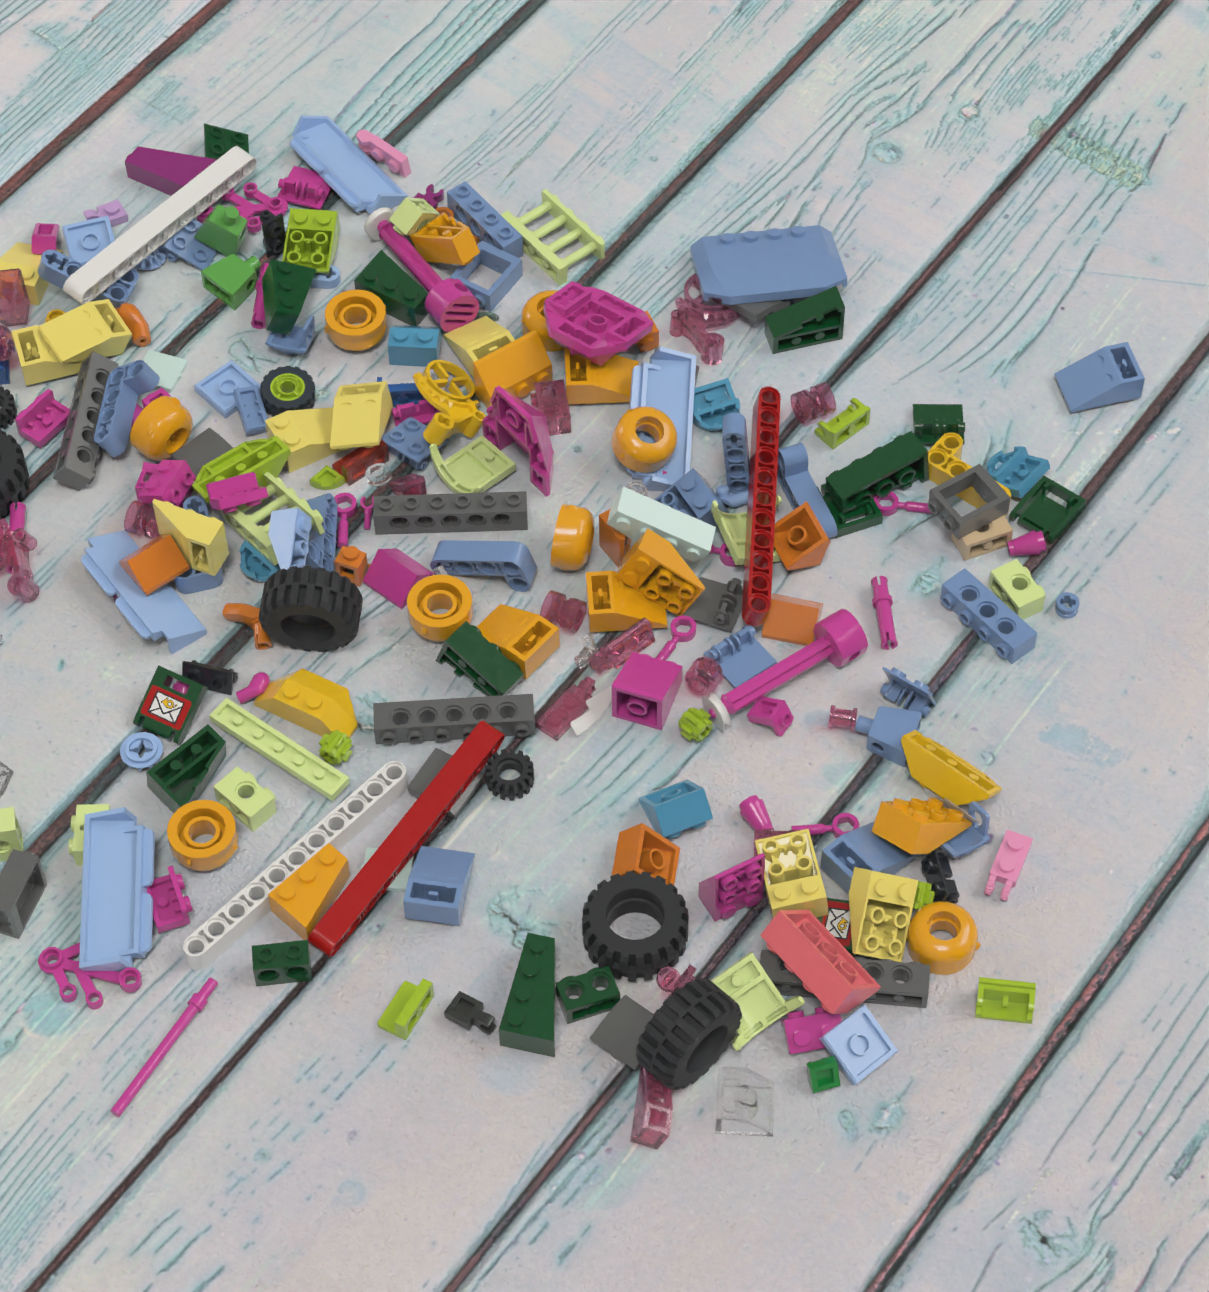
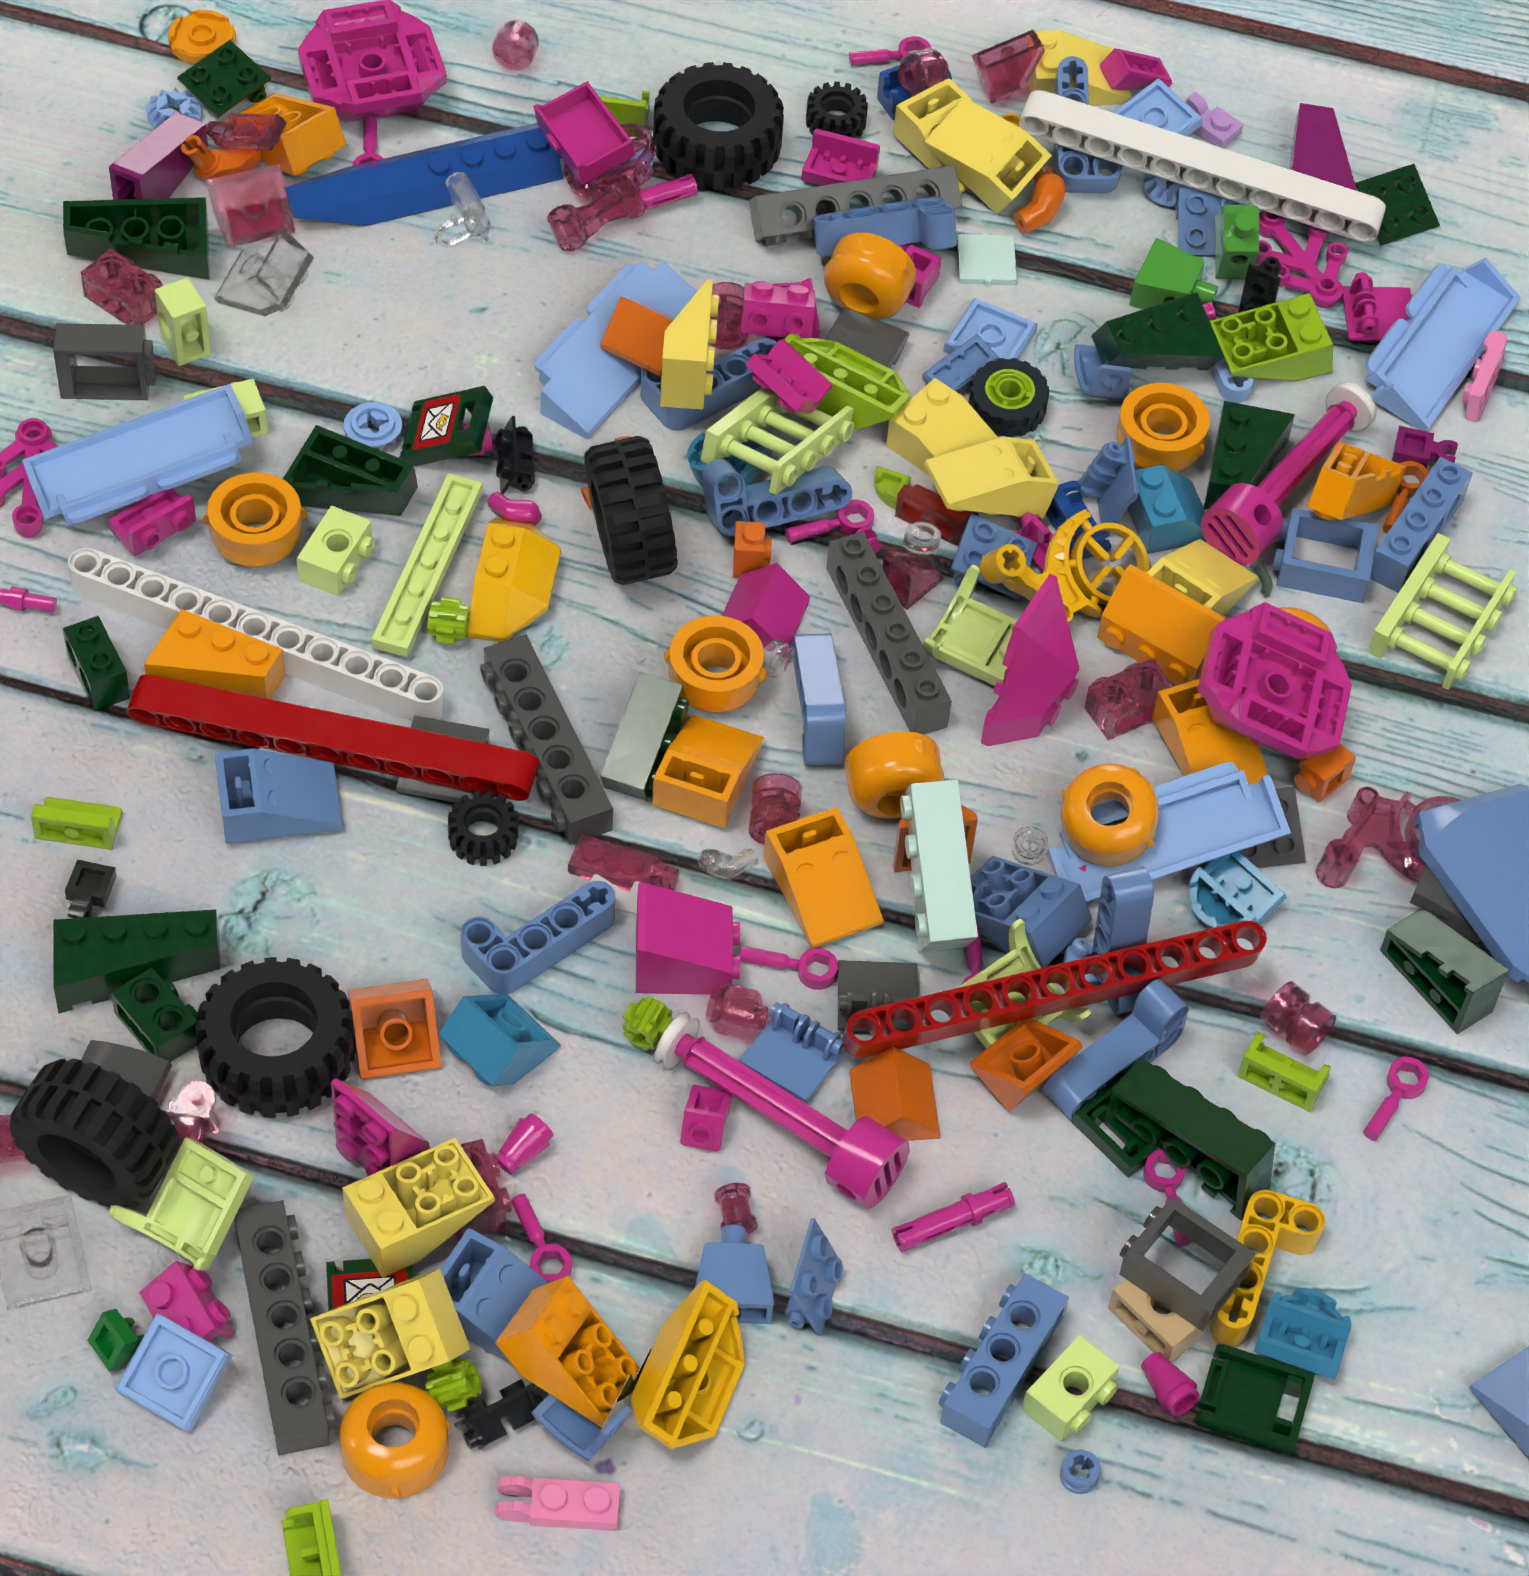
camera: 65 degrees right, 0 degrees up
(290, 536) = (712, 451): light blue slope -> none
(392, 358) = (1111, 480): none -> medium blue hinge
(412, 215) = (1372, 428): yellowish green brick -> none
(613, 758) = (586, 911): none -> medium blue beam
(620, 648) = (749, 901): clear pink hinge -> none
(660, 573) = (872, 877): light orange slope -> none
(819, 960) = (277, 1272): coral slope -> none
(872, 376) = (1399, 1090): none -> dark pink piece
(935, 420) = (1352, 1202): dark green hinge -> none

